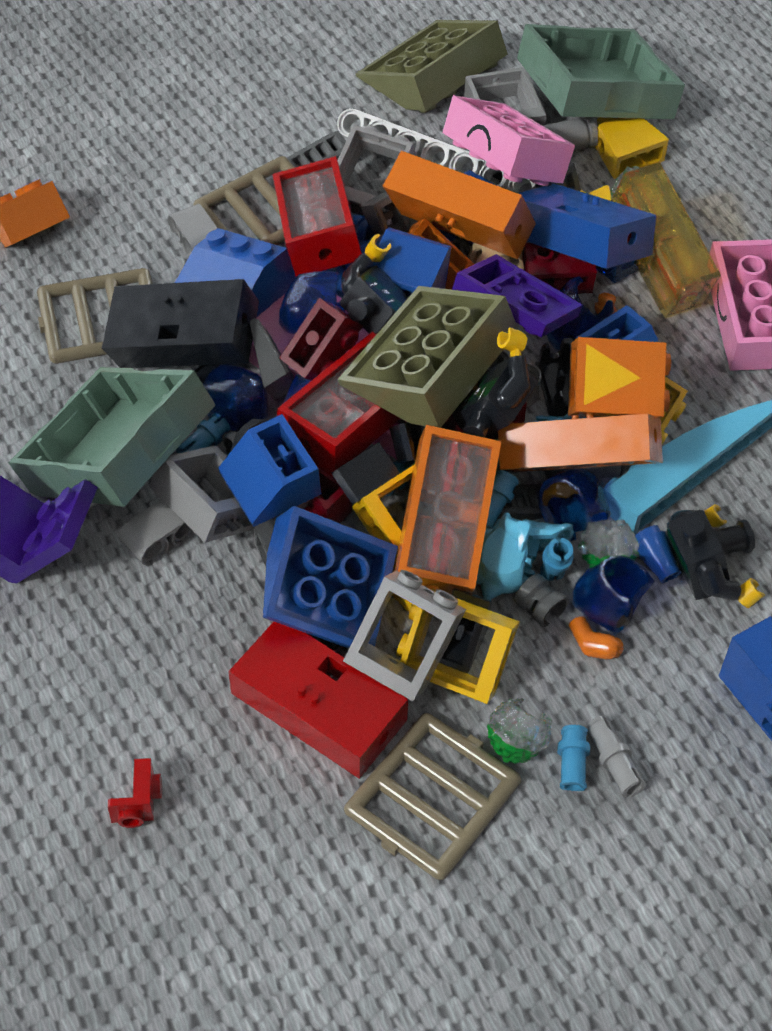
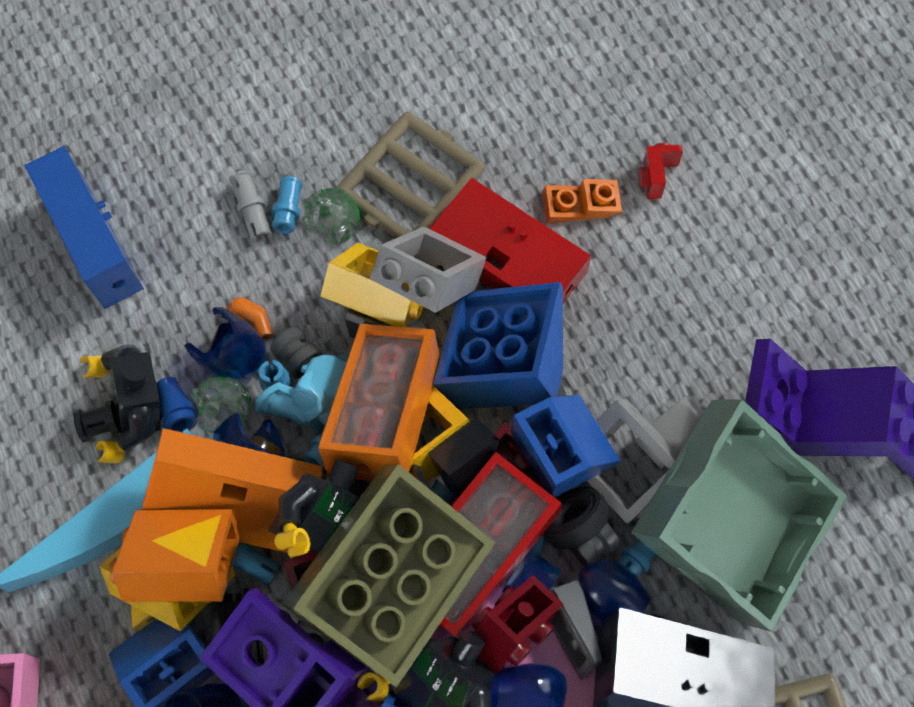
camera: 175 degrees left, 15 degrees up
(226, 768) = (587, 201): none -> orange slope

